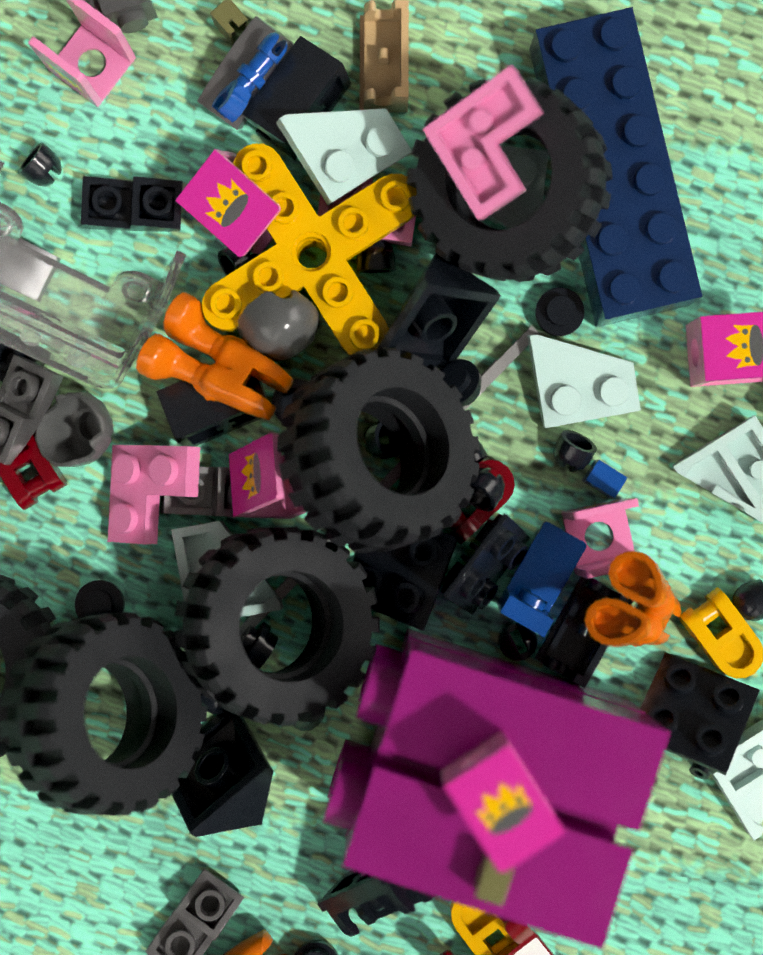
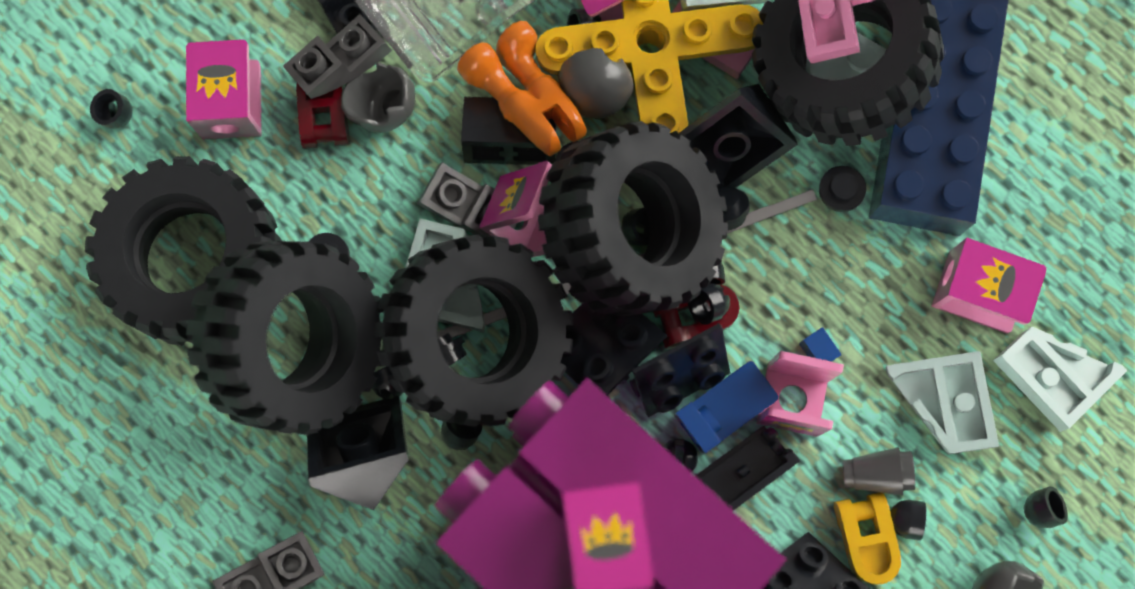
camera: 25 degrees right, 10 degrees down
(137, 482) = (412, 164): bright pink plate -> none
(376, 258) = (702, 74): black hinge -> none
(574, 450) = (803, 311): black hinge -> none
(580, 383) = (834, 255): light aqua wing -> none
(621, 624) = (800, 476): orange piece -> none
(709, 570) = (881, 472): none -> dark grey cone

